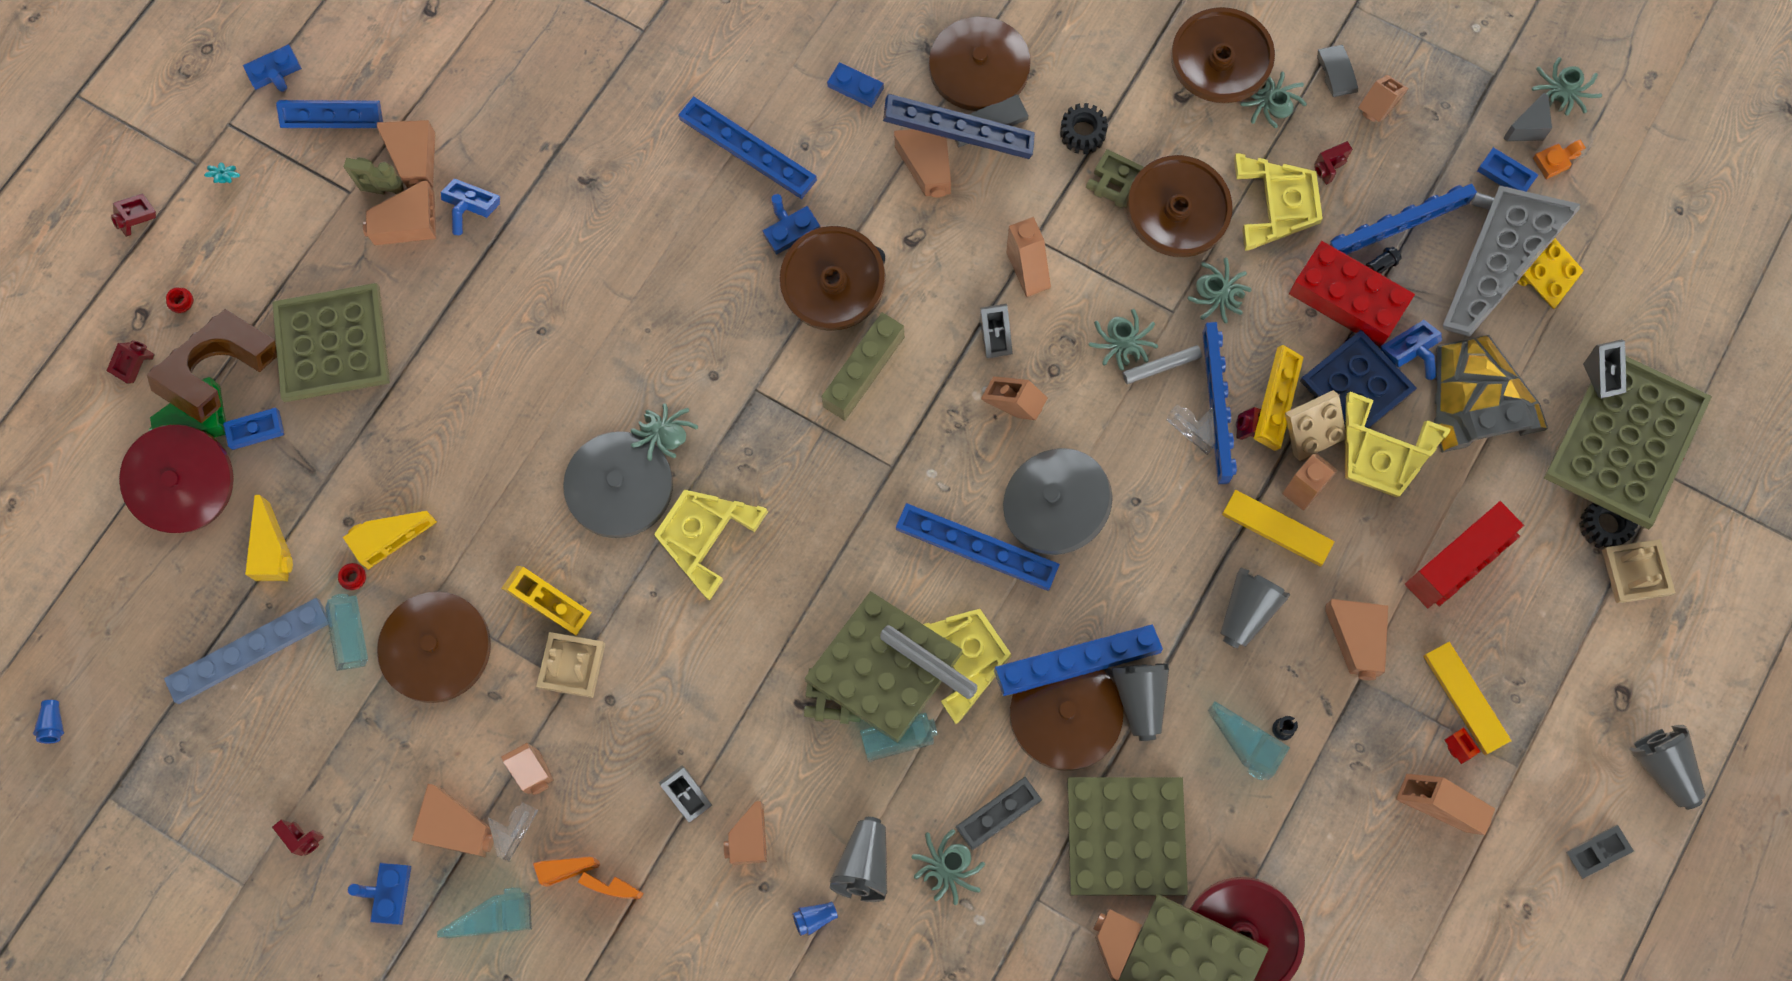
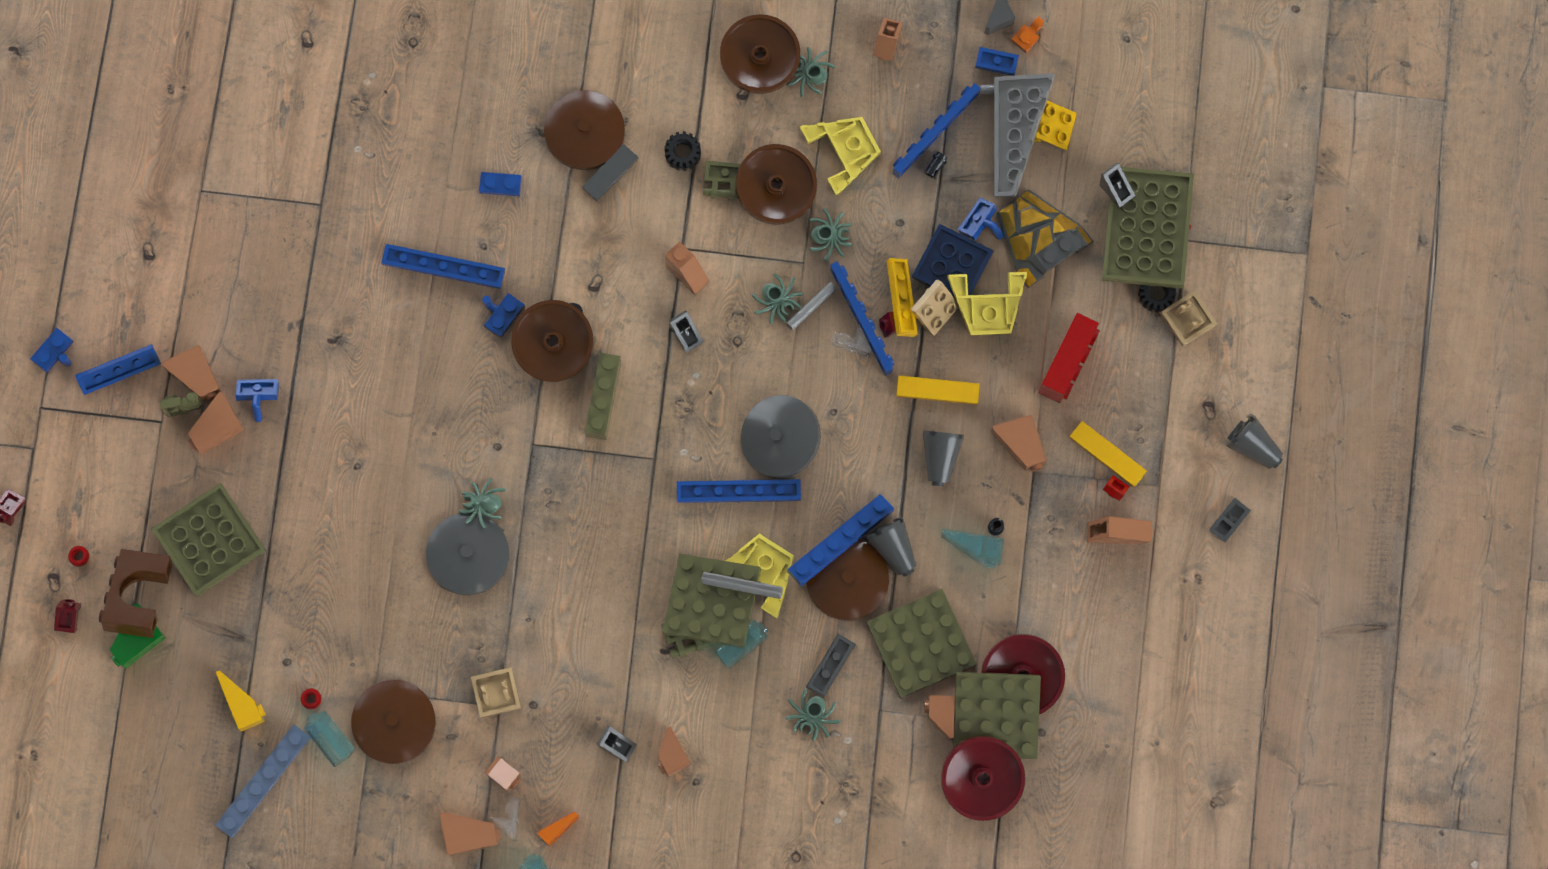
camera: 30 degrees left, 5 degrees up
(176, 479) = (151, 685): dark red dish -> none
(221, 173) = (59, 448): teal plant -> none
(253, 428) = (185, 625): blue plate -> none
(381, 537) = (318, 663): yellow slope -> none
(546, 599) = (456, 655): yellow slope -> none
(617, 887) = (600, 825): orange slope -> none
(694, 527) = (536, 562): light yellow wing -> none
(814, 917) = (738, 786): blue cone -> none
(863, 863) = (756, 736): dark grey cone -> none
(926, 159) = (579, 221): nougat slope -> none
(958, 126) = (594, 190): dark blue plate -> none
(1015, 397) = (719, 373): nougat slope -> none
(1309, 481) = (946, 347): nougat slope -> none
(1331, 160) = (869, 101): dark red bracket -> none
(1338, 70) = (847, 30): dark grey slope -> none
(1351, 293) = (922, 199): red brick -> none

